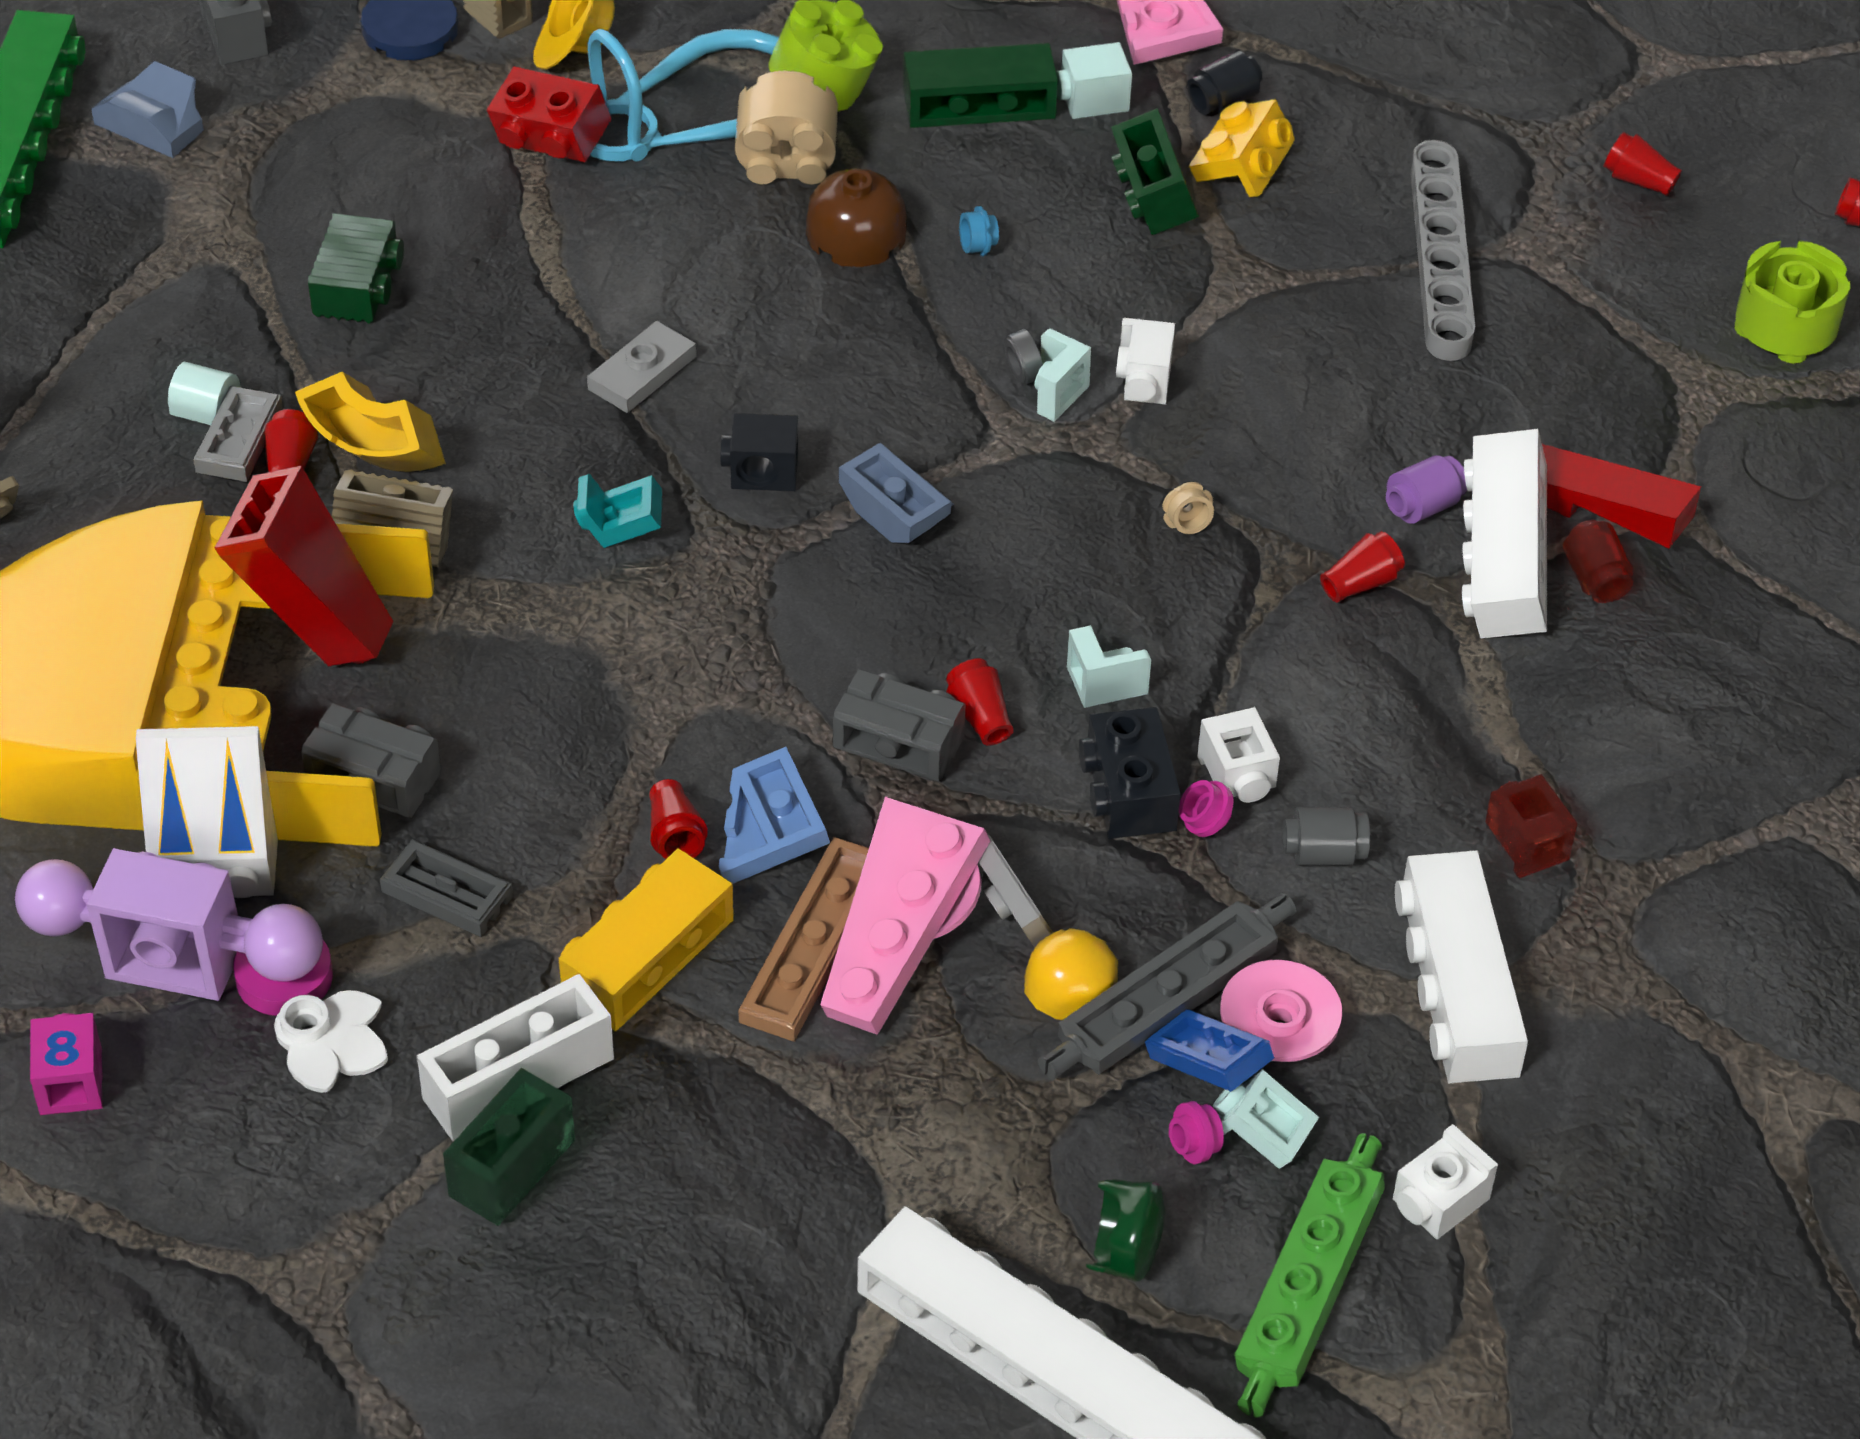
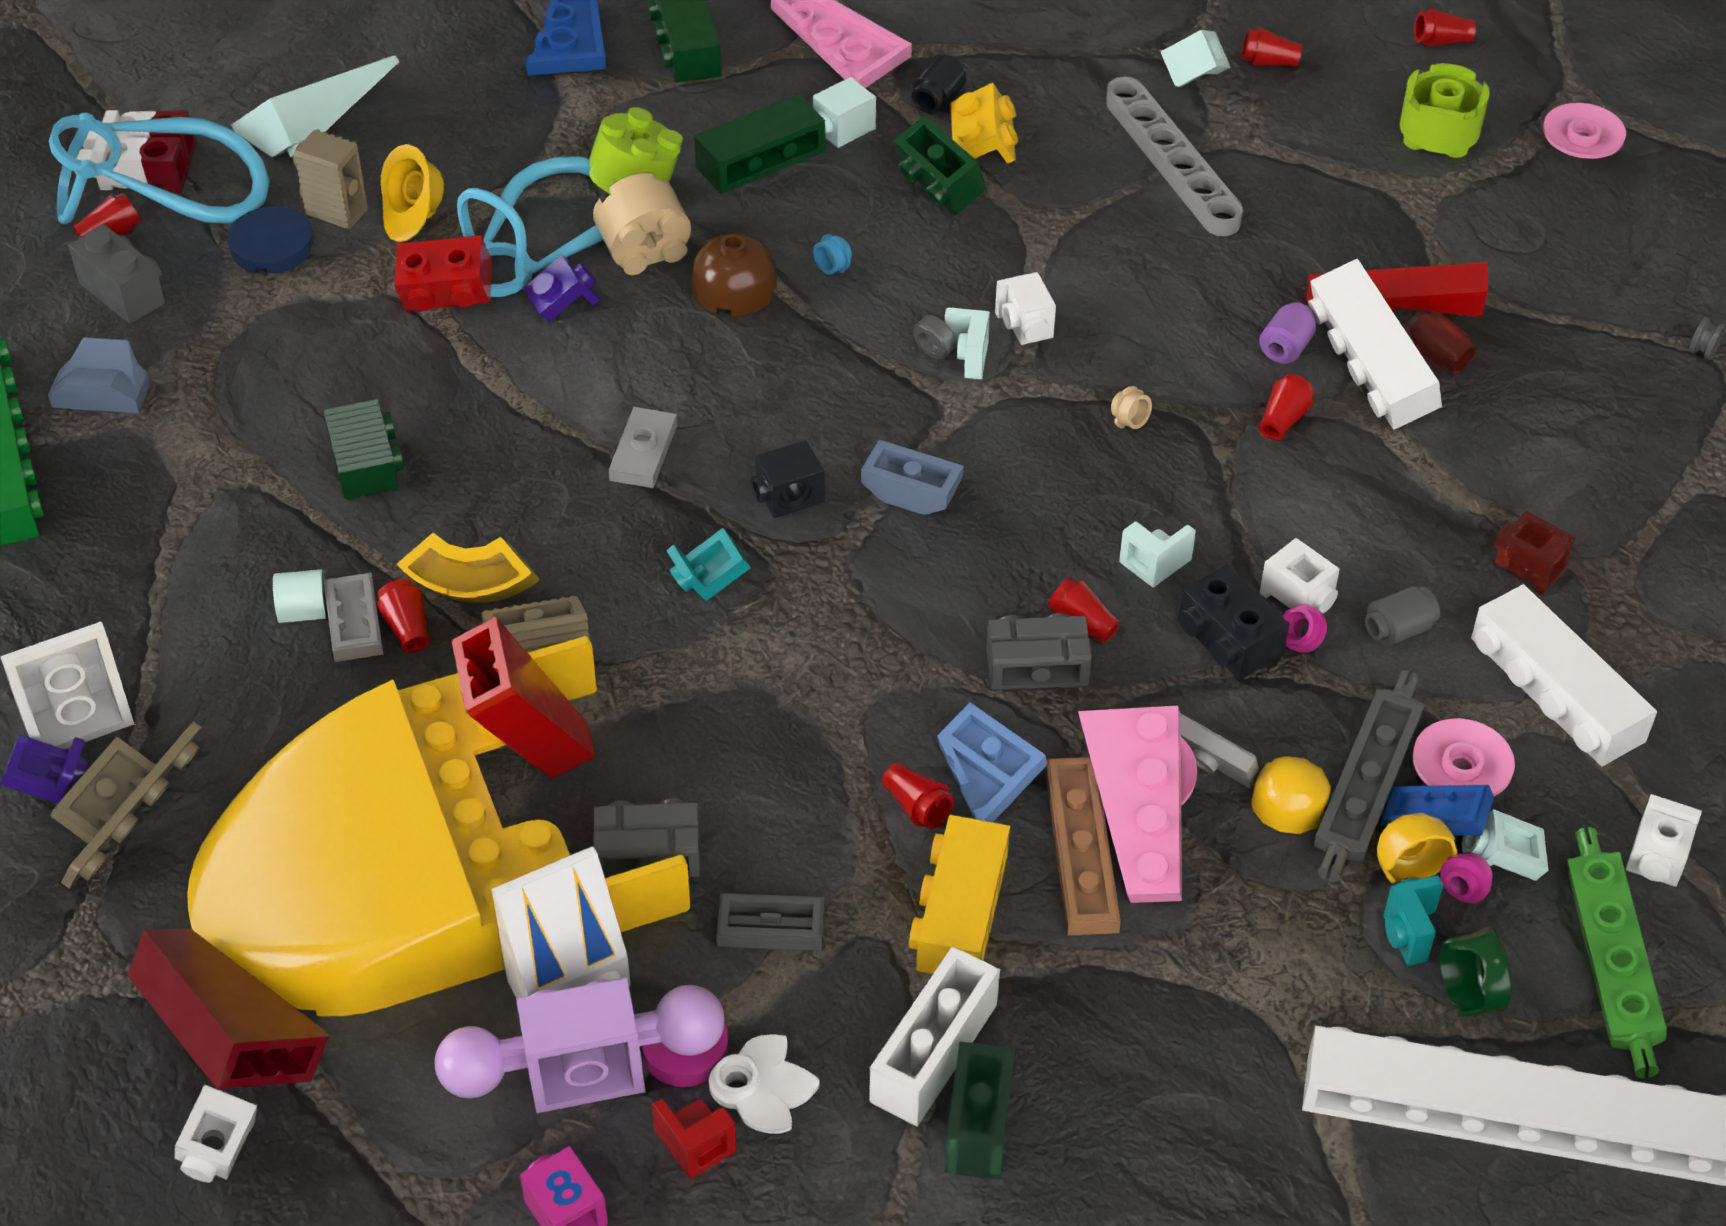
camera: 25 degrees left, 0 degrees up
(232, 1060) = (695, 1135): none -> red panel
(665, 167) = (560, 286): none -> dark purple bracket
(1107, 1130) = (1408, 919): none -> teal bracket
(1151, 1077) = (1414, 847): none -> yellow hair
(1543, 144) = (1195, 57): none -> light aqua panel

